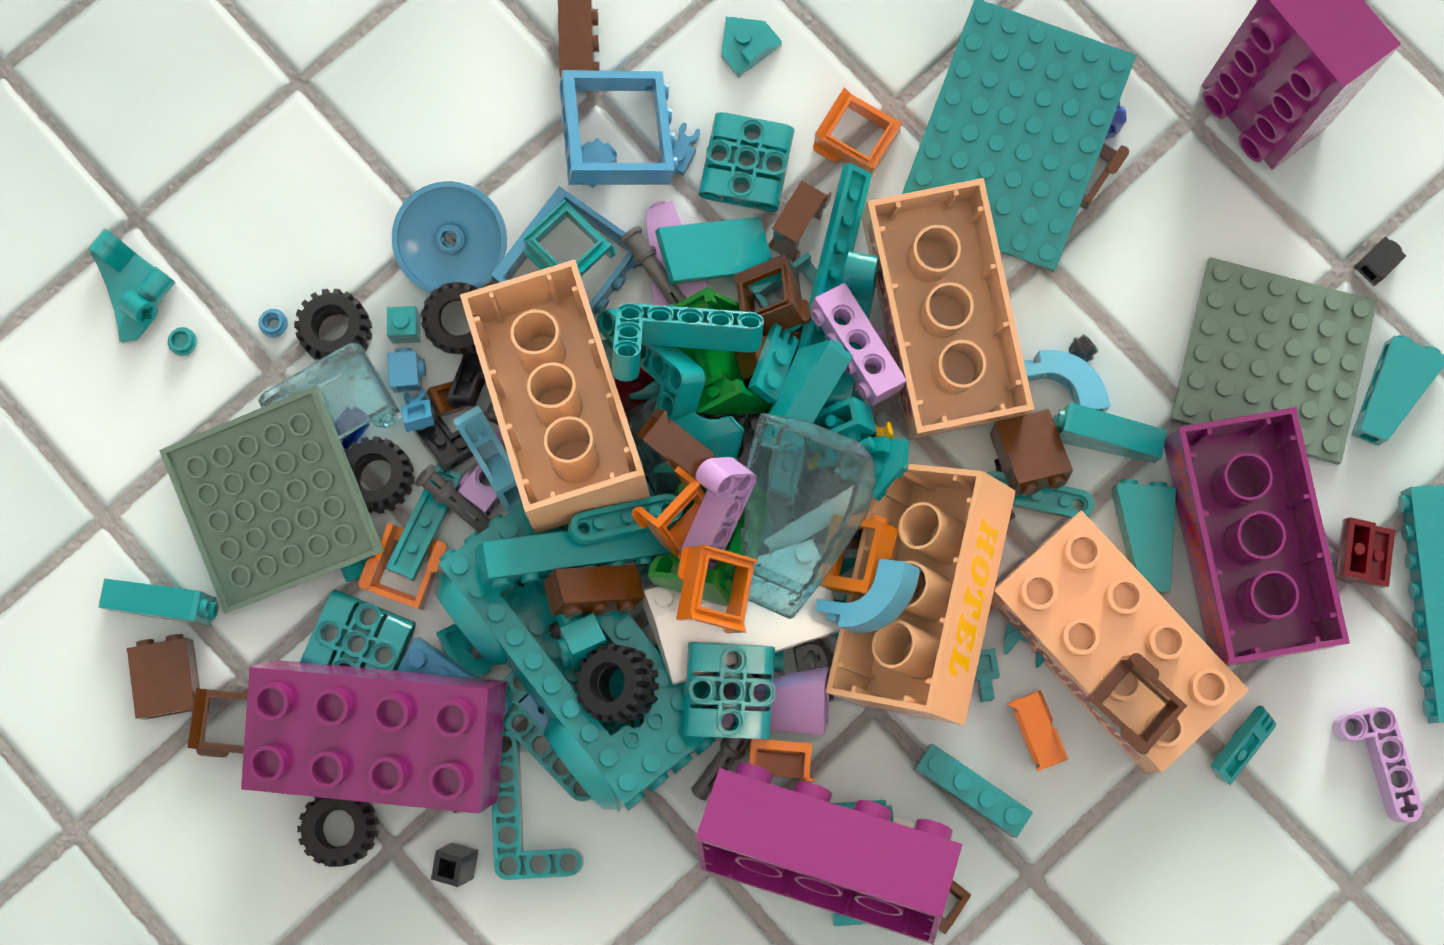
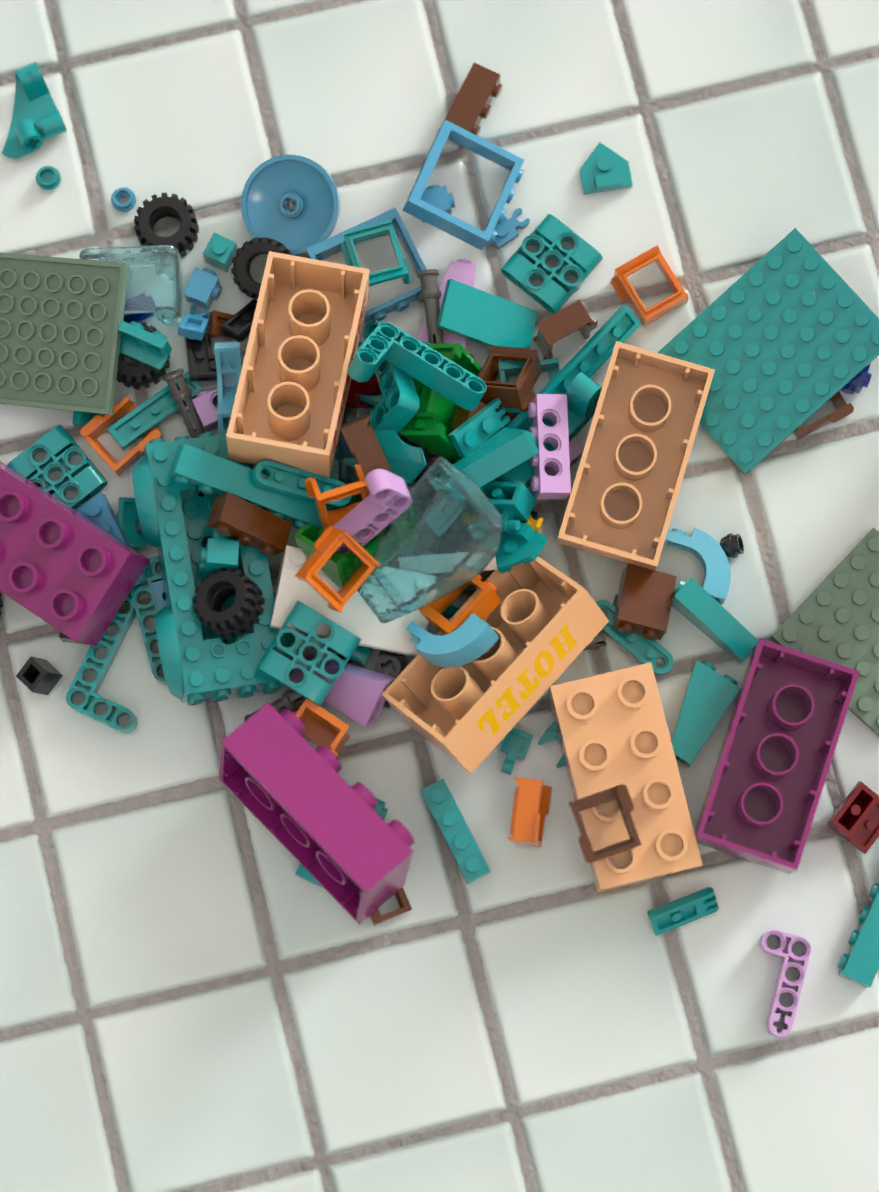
camera: 30 degrees right, 0 degrees up
(378, 462) = (144, 346): none -> teal bracket

